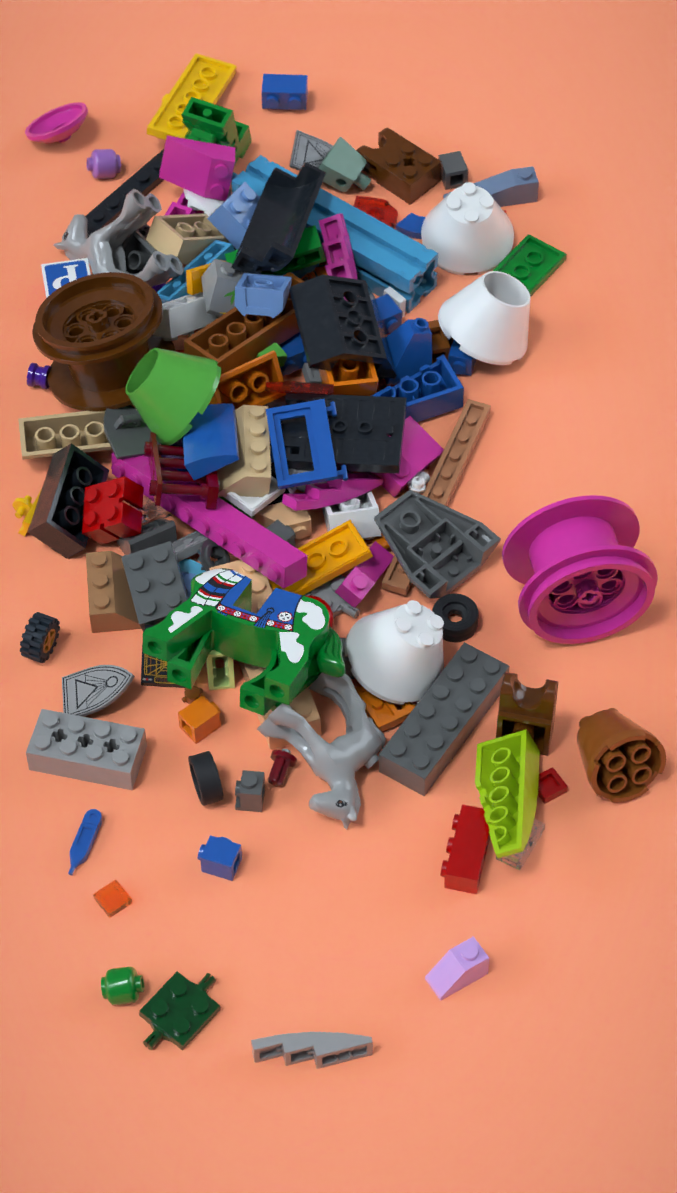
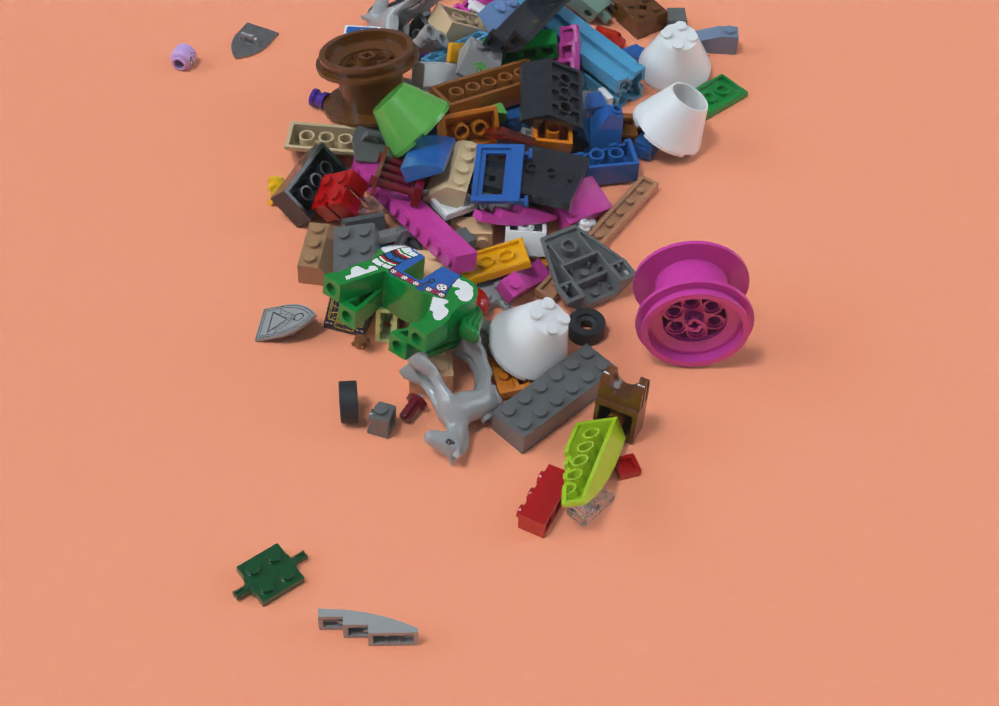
camera: 10 degrees right, 5 degrees down
(39, 637) = (254, 274): black wheel -> none
(84, 838) = (240, 428): blue piece -> none
(86, 749) = (263, 362): light grey brick -> none
(112, 898) = (246, 478): clear orange tile -> none
(122, 985) = (229, 544): green head -> none
(199, 719) = (359, 359): orange brick -> none
(220, 857) = (342, 464): blue brick -> none
(262, 294) = (498, 65): medium blue slope -> none
(458, 968) = (509, 591): lavender slope -> none
(618, 755) = (689, 454): dark orange cone -> none

